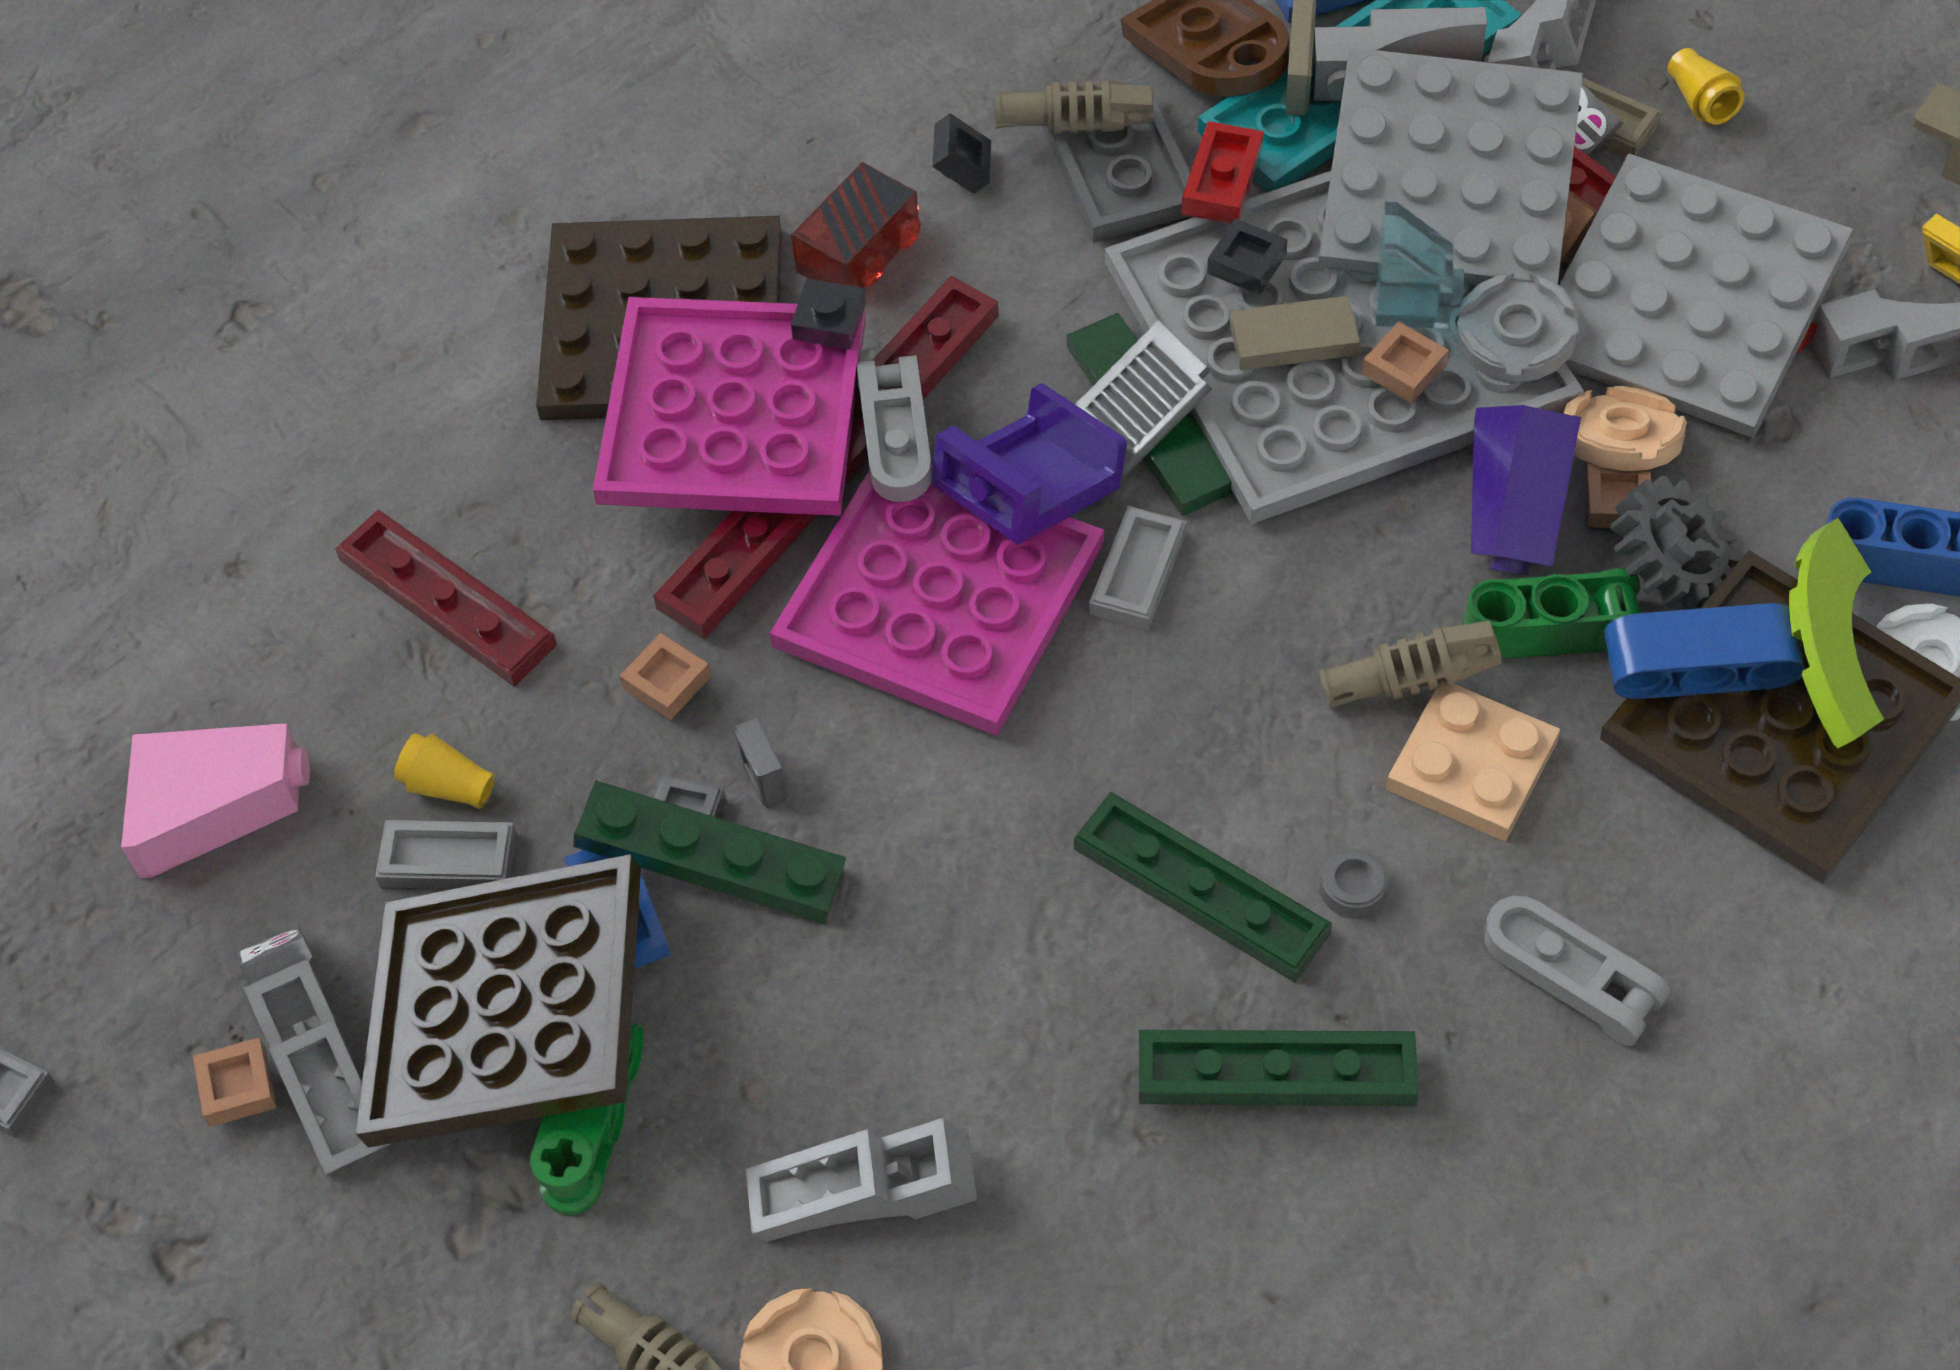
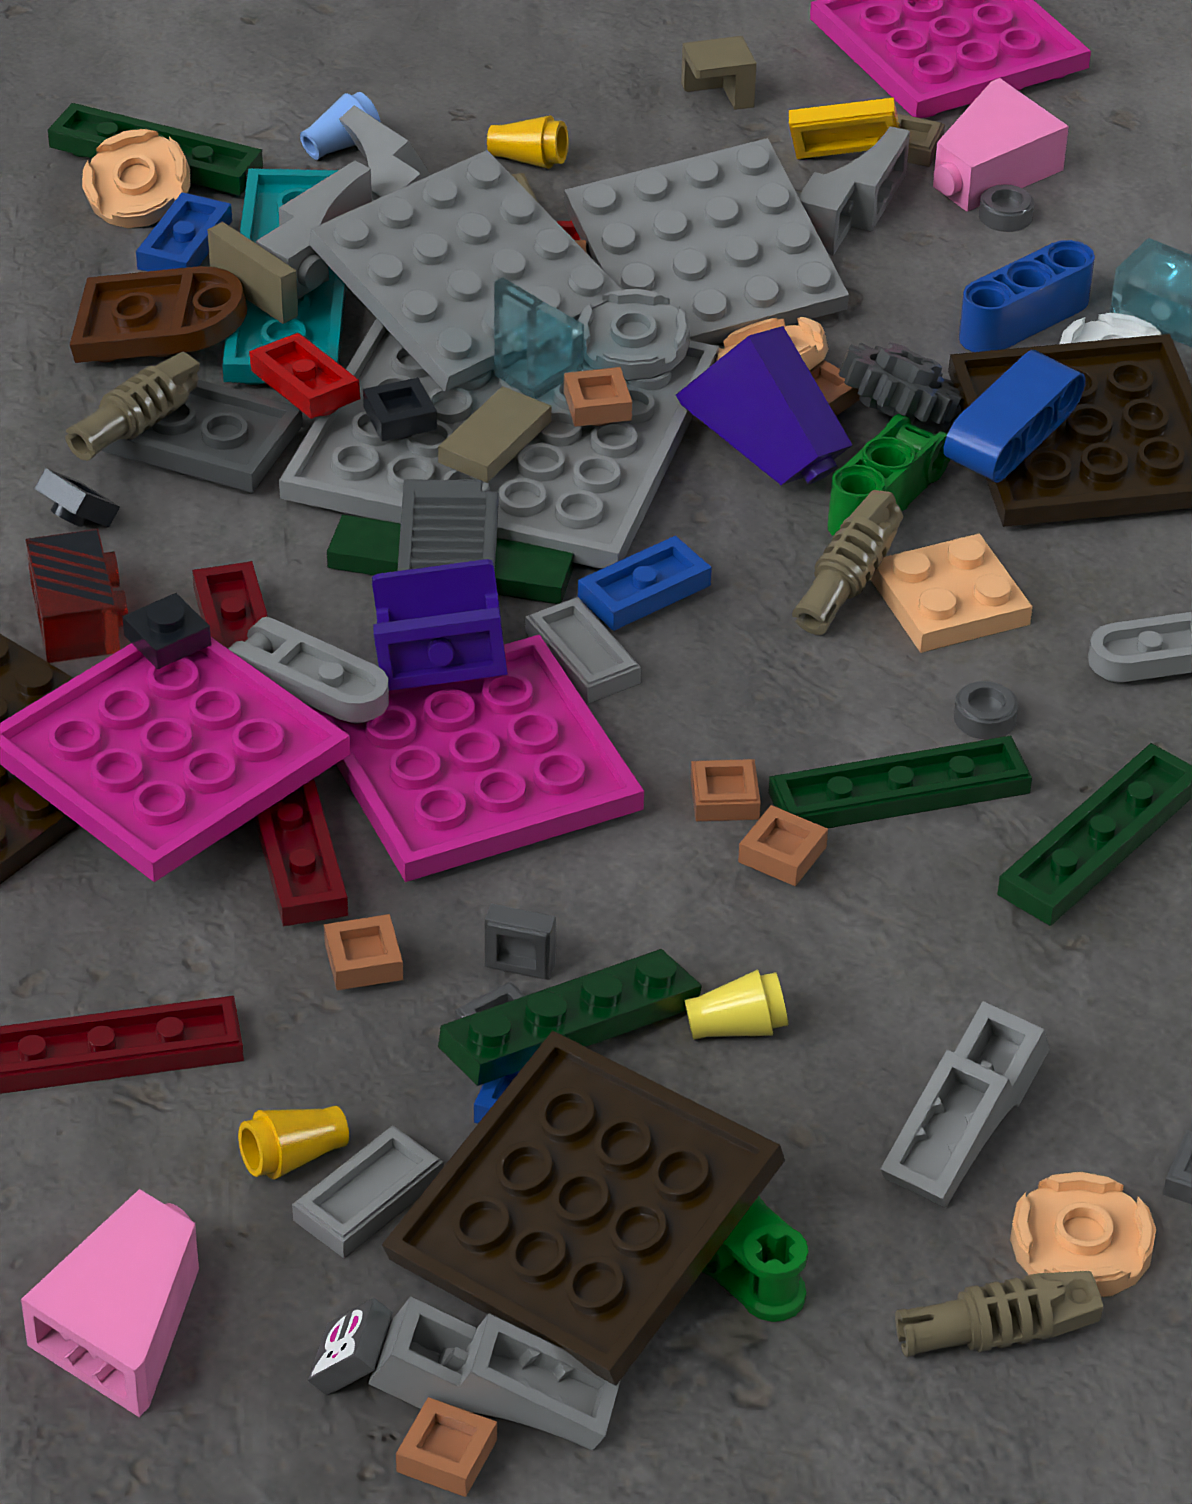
camera: 55 degrees left, 15 degrees down
(832, 956) = (739, 1008): none -> light yellow cone
(1038, 856) = (783, 845): none -> nougat plate
(1074, 773) = (725, 790): none -> nougat tile
(1247, 551) = (644, 582): none -> blue plate
(1822, 619) = (1072, 352): lime tile -> none

